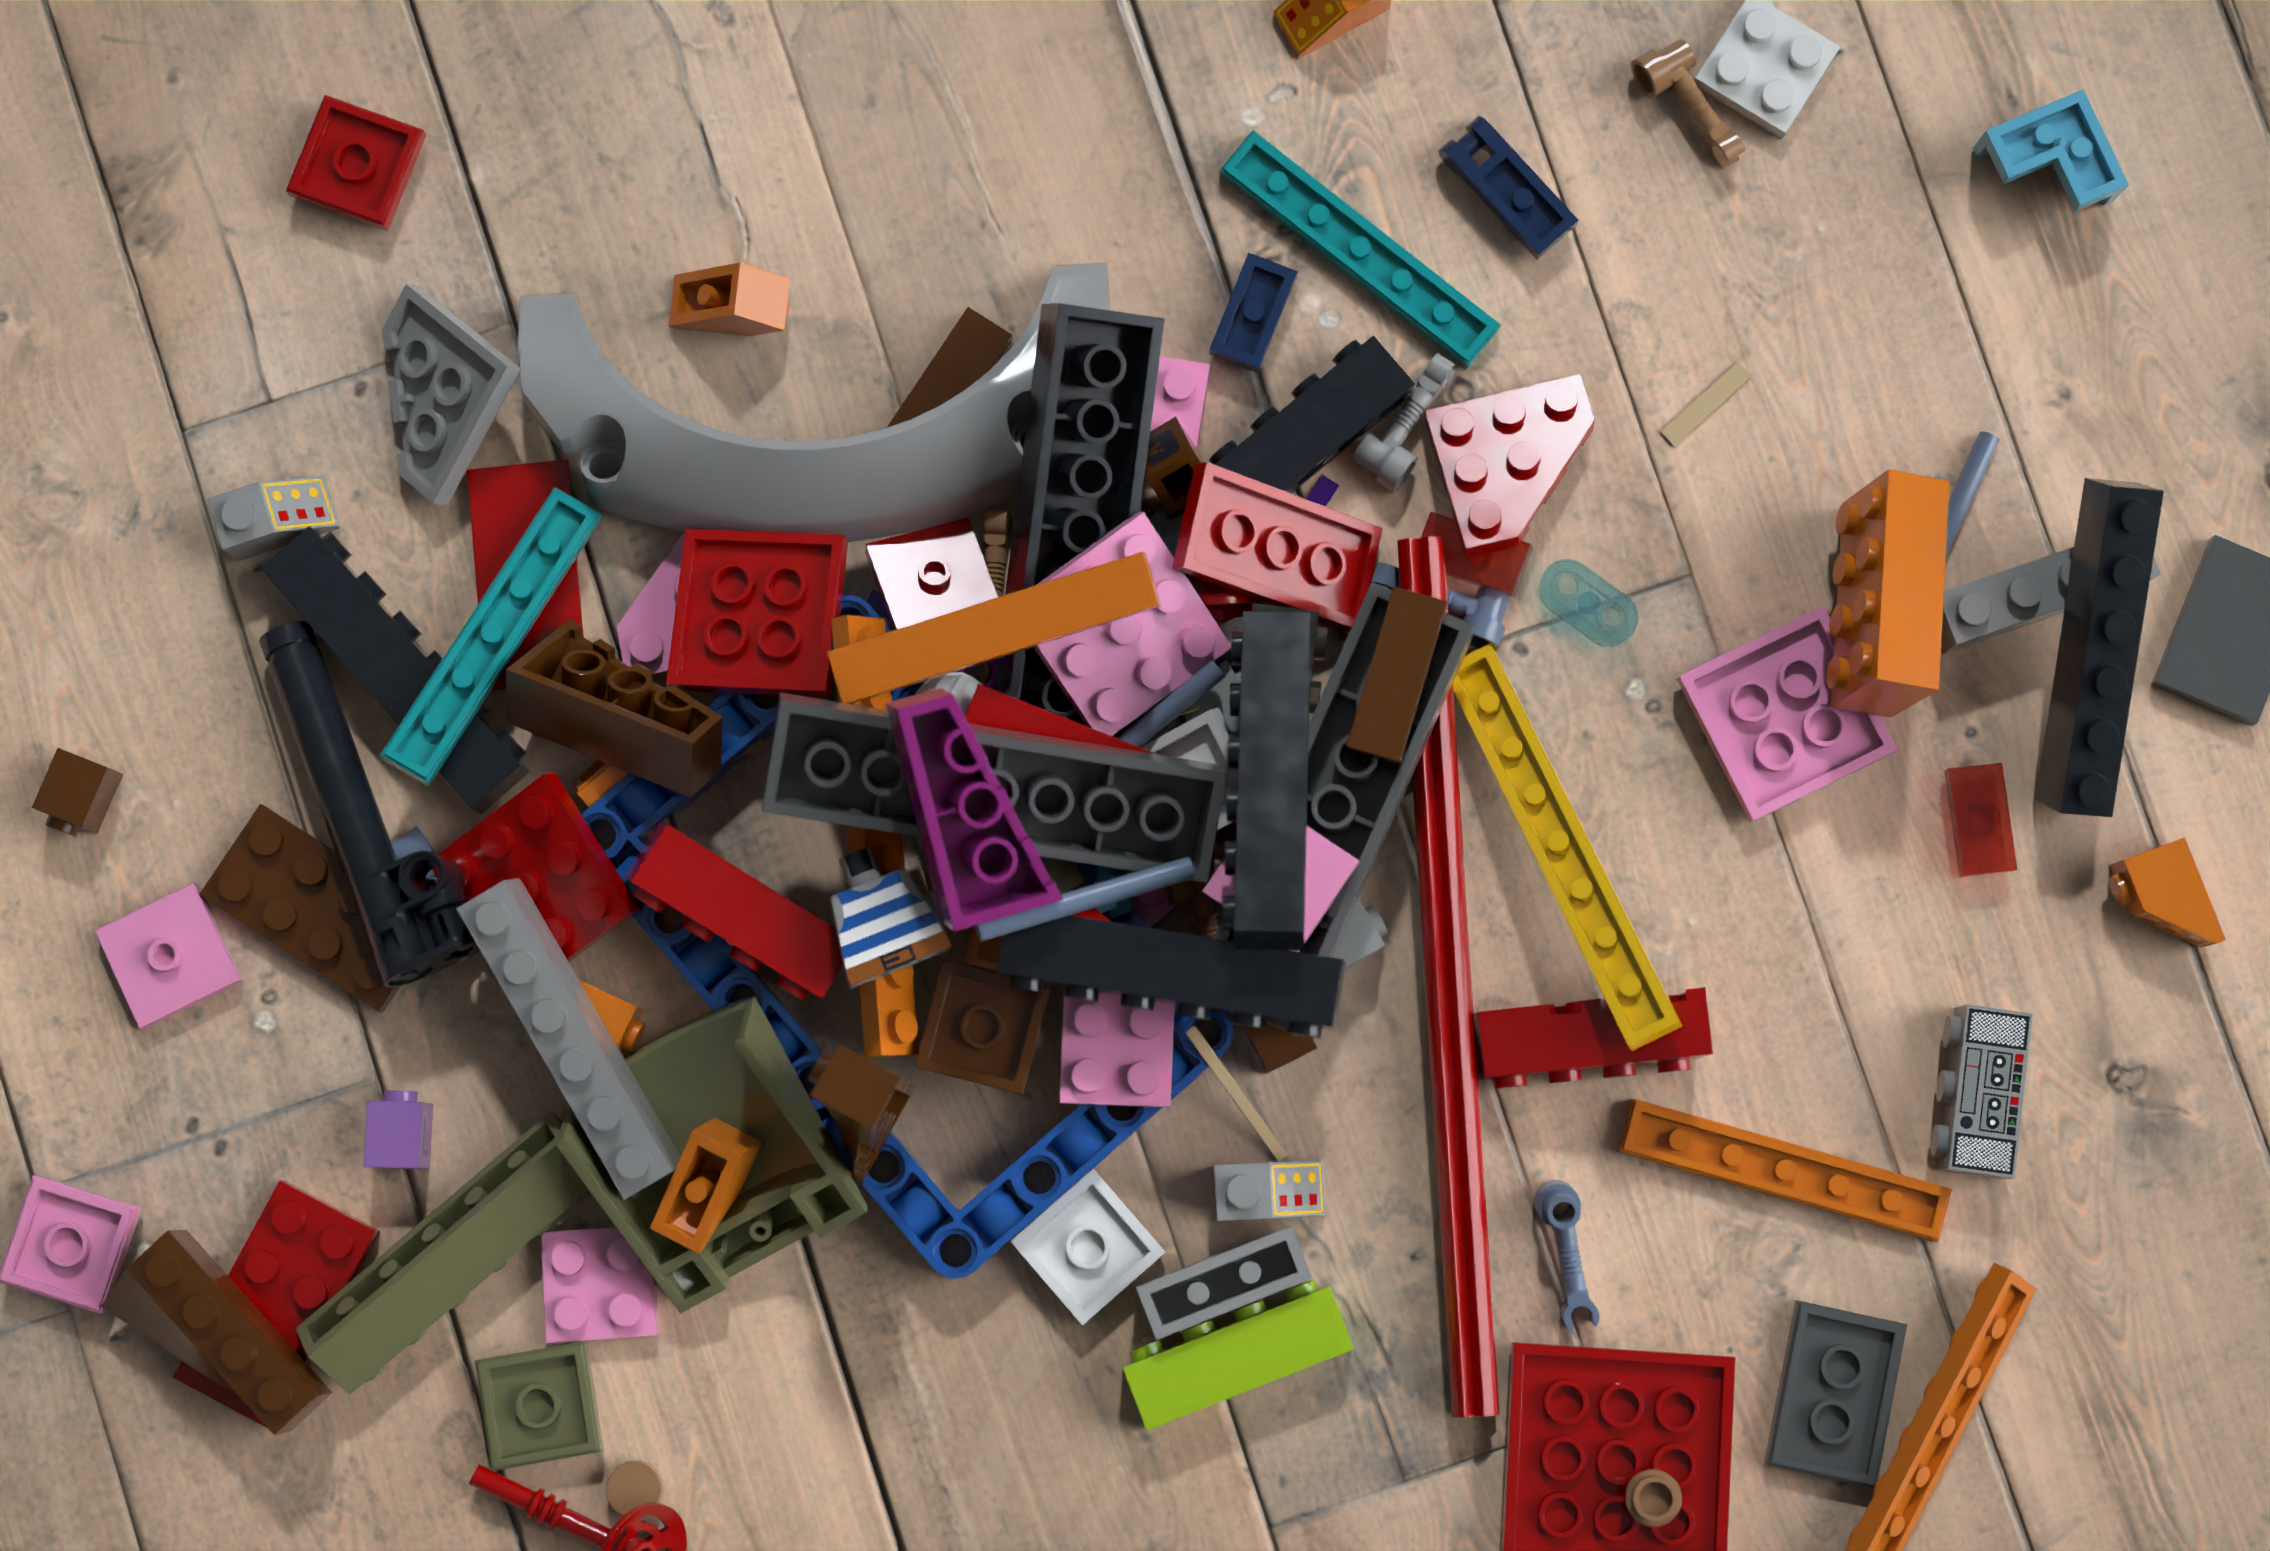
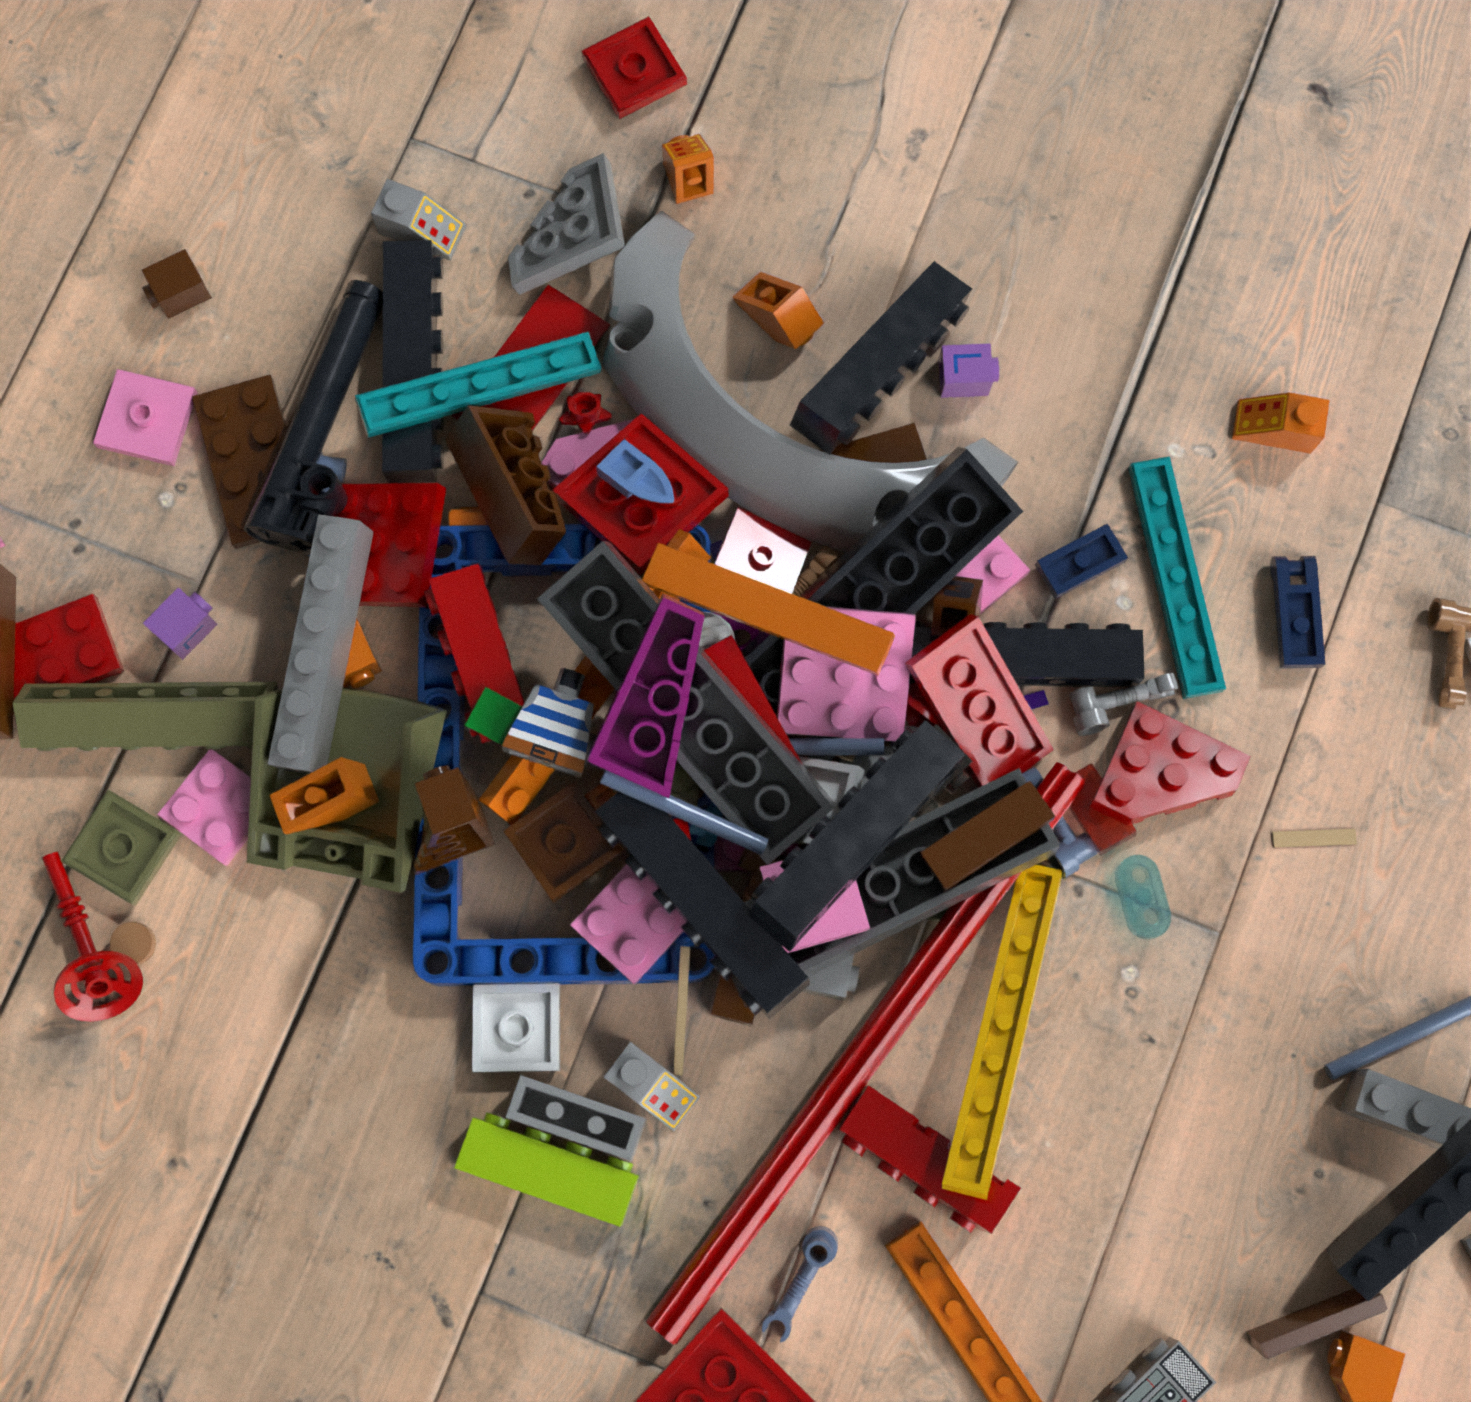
camera: 35 degrees right, 5 degrees down
(507, 225) = (689, 167): none -> orange slope
(613, 562) = (585, 402): none -> red plate
(741, 598) = (635, 474): none -> medium blue plate
(812, 961) = (493, 715): none -> green tile
(884, 270) = (881, 358): none -> black brick
(976, 207) = (967, 370): none -> medium lavender brick
(1774, 720) = (1211, 1066): bright pink plate -> none
(1889, 594) = (1337, 1043): orange brick -> none
(1980, 820) = (1281, 1233): clear red plate -> none
(2078, 879) = (1314, 1322): none -> reddish brown tile

